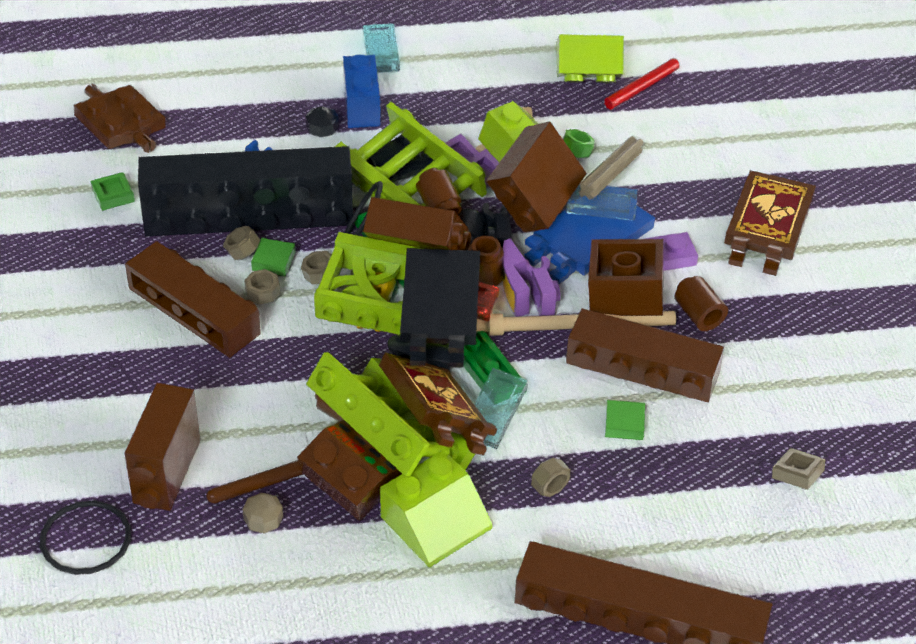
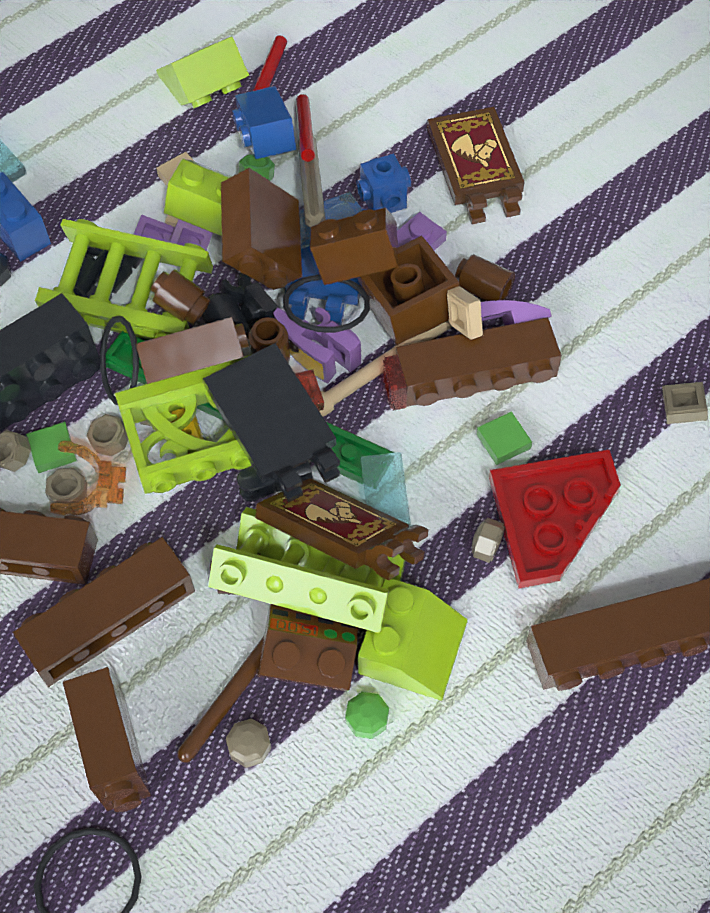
camera: 30 degrees left, 15 degrees up
(232, 373) = (104, 611): none -> reddish brown brick
(289, 301) = (107, 487): none -> clear orange helmet
(363, 542) = (367, 715): none -> bright green tile
(548, 273) = (325, 329): none -> black piece
(561, 335) = (394, 382): none -> clear red tile
(602, 218) = (355, 245): none -> reddish brown slope
(606, 111) = (264, 122): none -> blue brick
(621, 484) = (552, 511): none -> red plate
(639, 130) = (305, 128): none -> red bar
(652, 307) = (465, 312): none -> tan tile
(670, 191) = (384, 184): none -> blue brick
(687, 324) = (513, 311): none -> medium lavender slope

